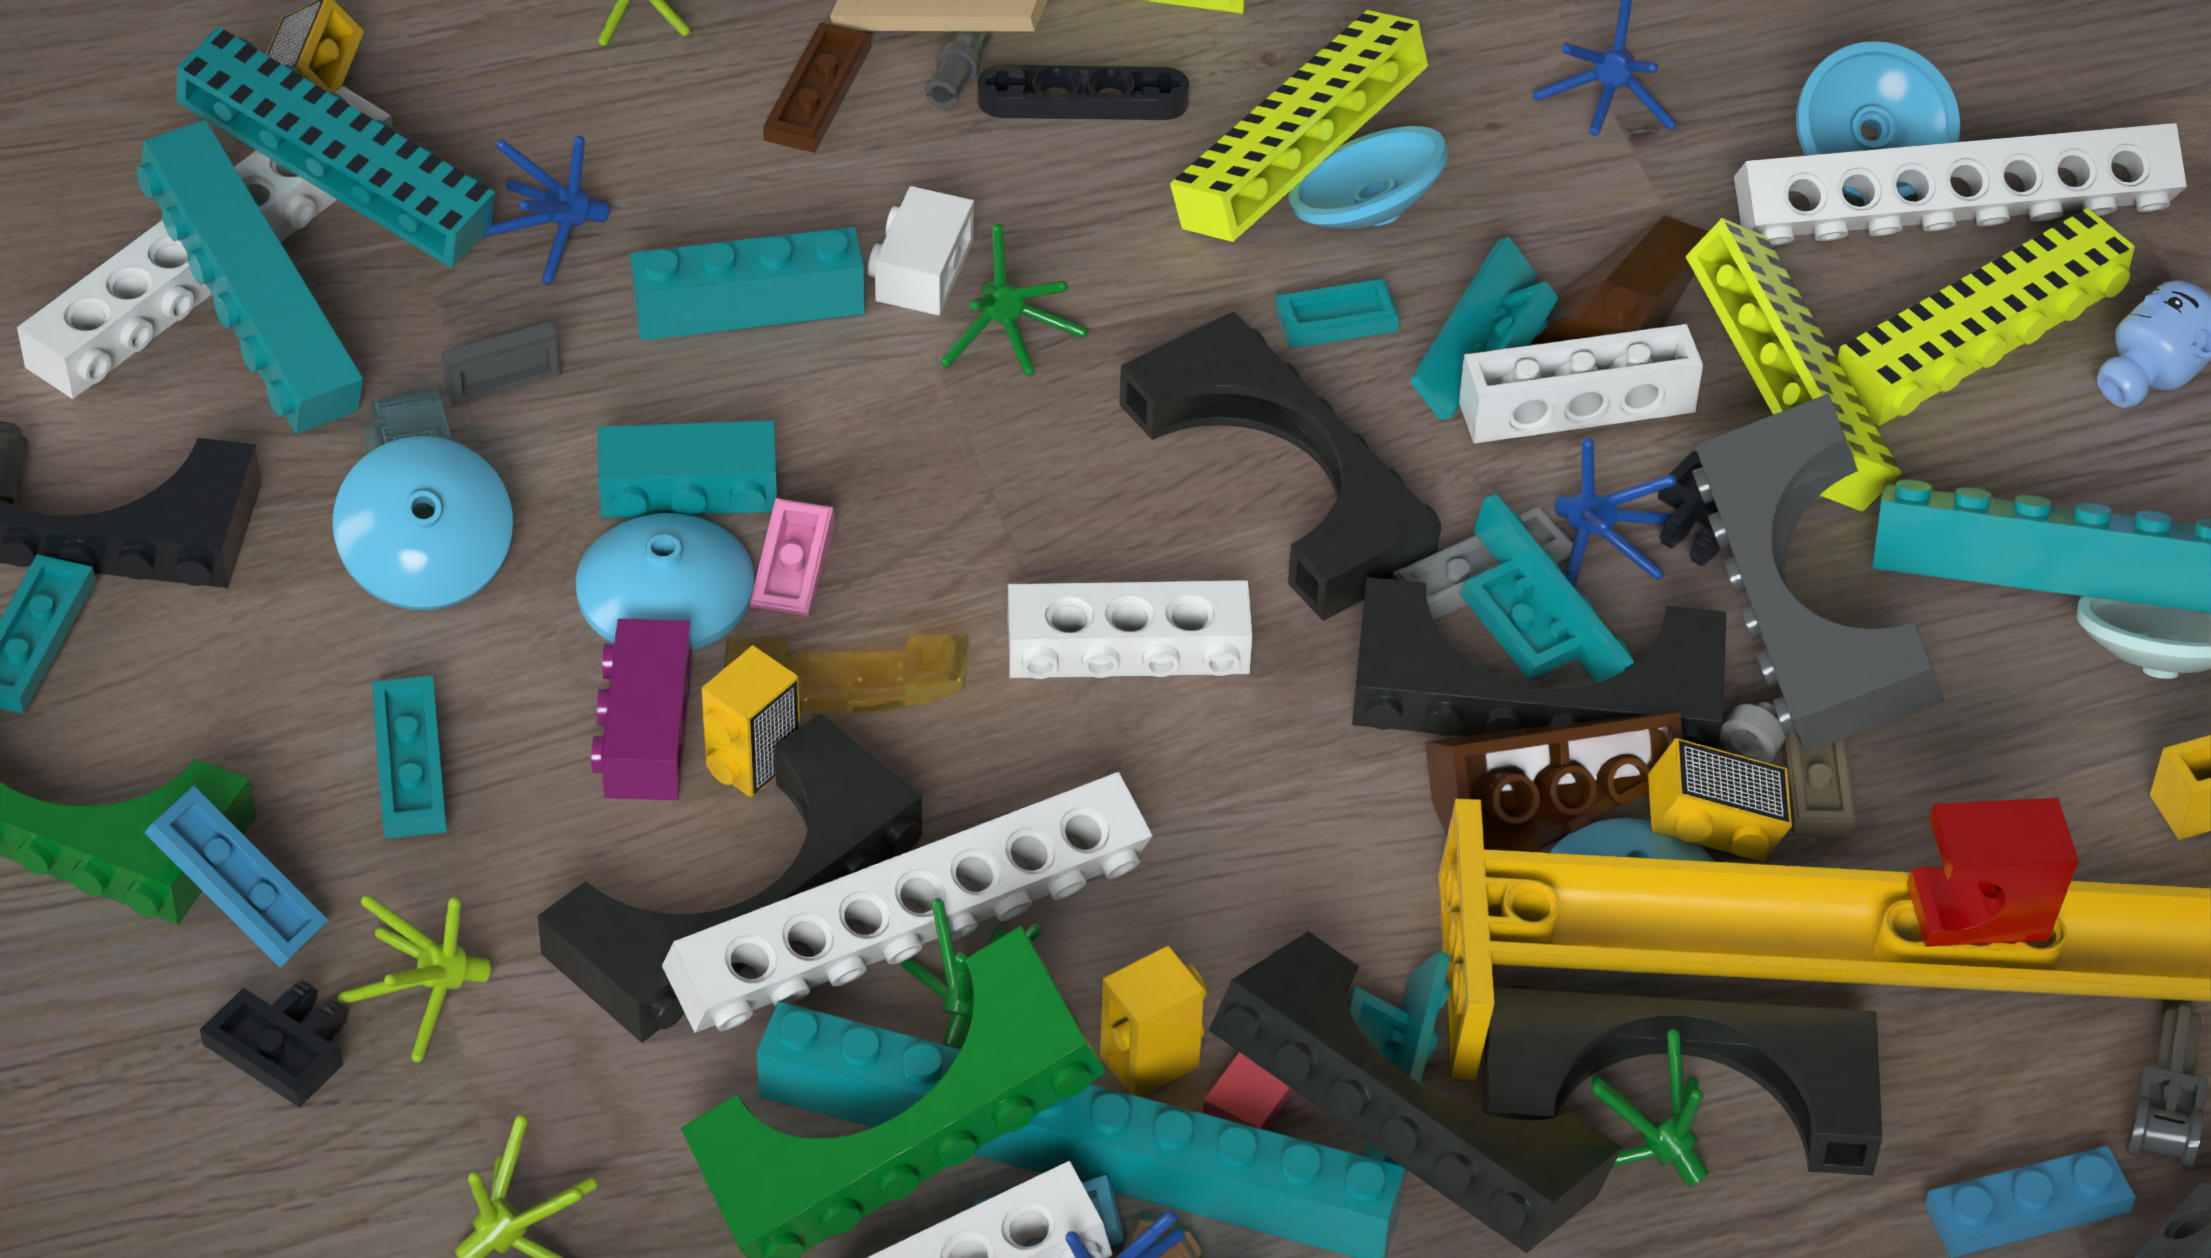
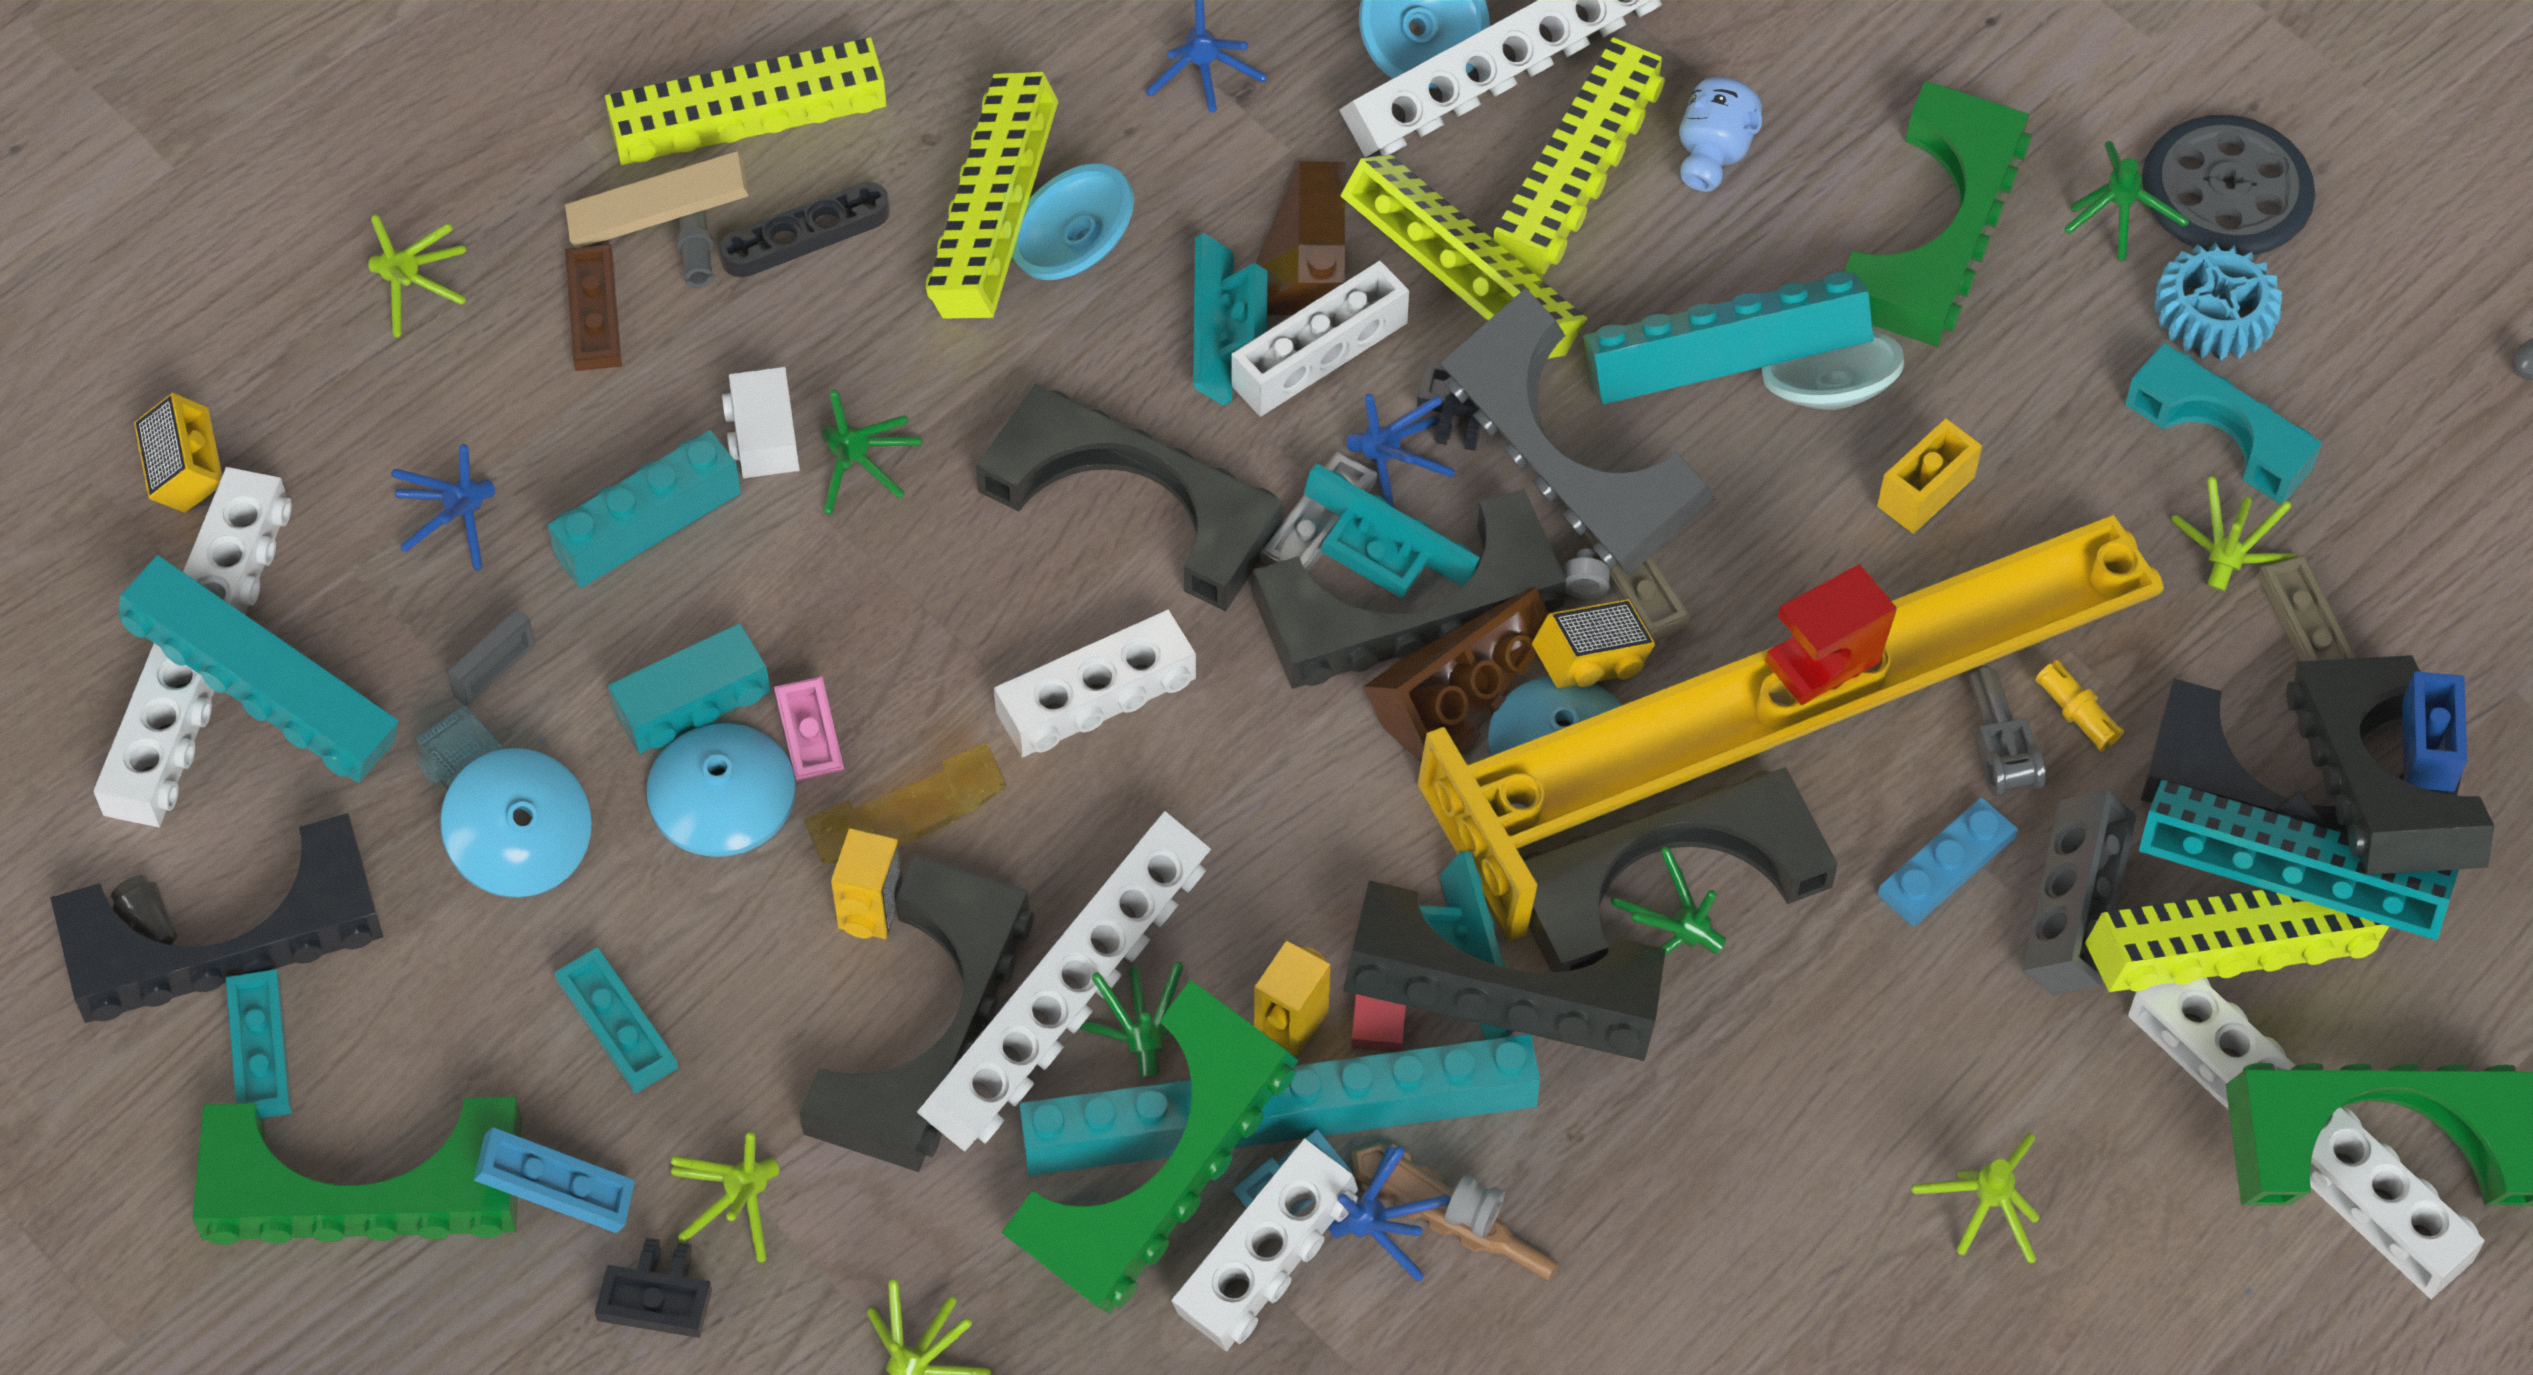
camera: 25 degrees left, 10 degrees up
(335, 146) = (259, 527): teal brick -> none
(644, 709) = (773, 904): magenta brick -> none
(1336, 313) = (1100, 346): teal tile -> none

